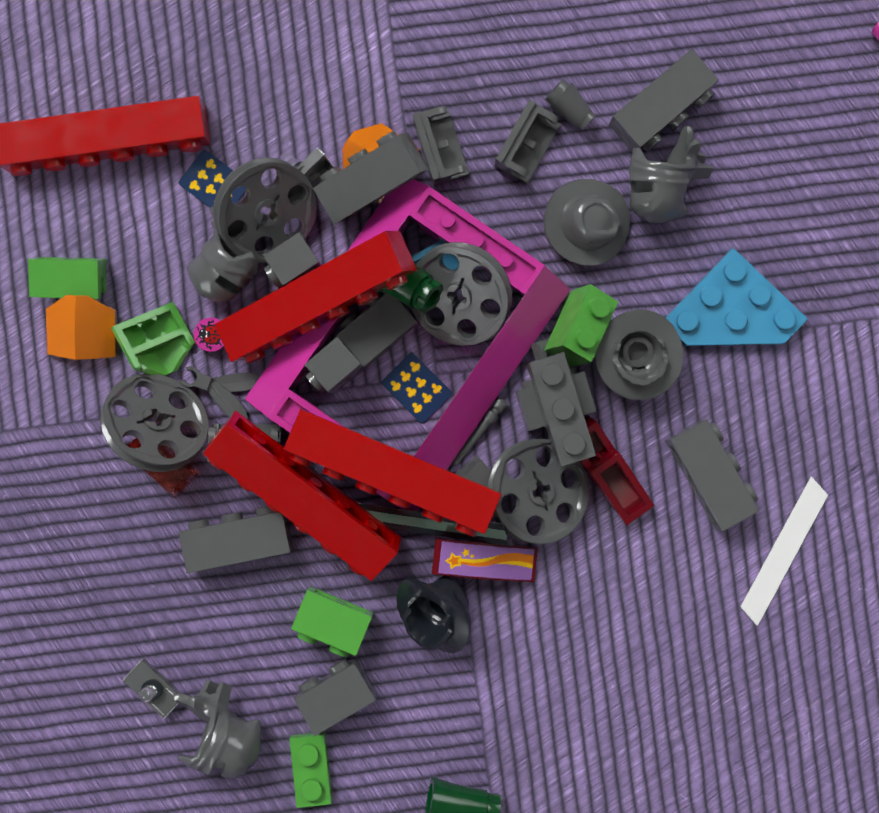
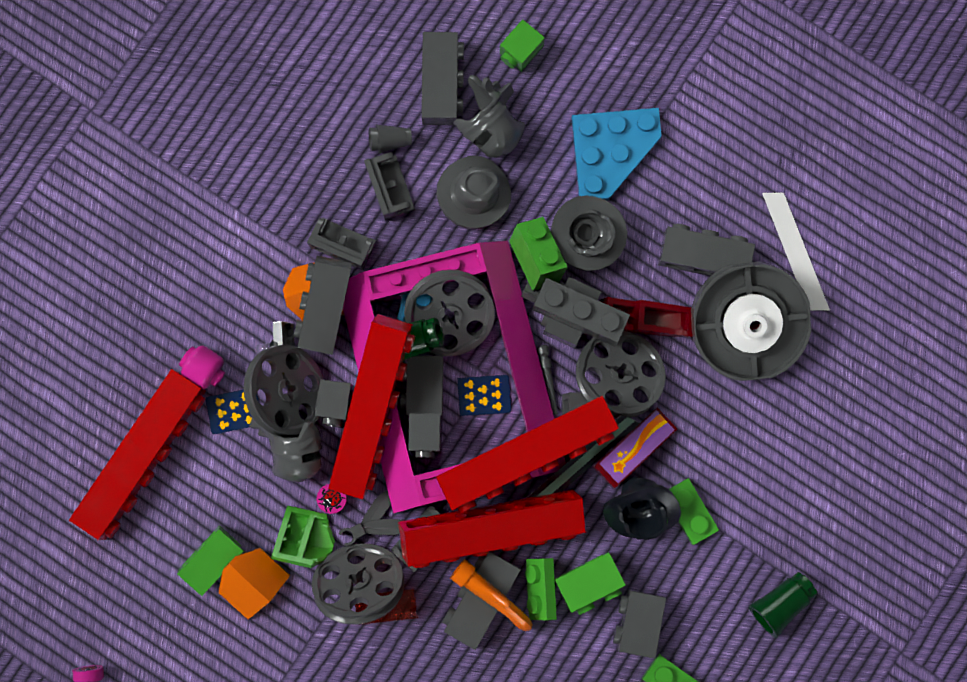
camera: 50 degrees left, 5 degrees down
(225, 121) = (202, 366): none -> dark pink head
(242, 516) = (467, 576): none -> orange plant
(290, 583) = (541, 589): none -> bright green plate
(470, 663) = (694, 515): none -> bright green plate
(686, 566) = (732, 302): none -> dark grey piece
(756, 148) = (521, 46): none -> bright green brick

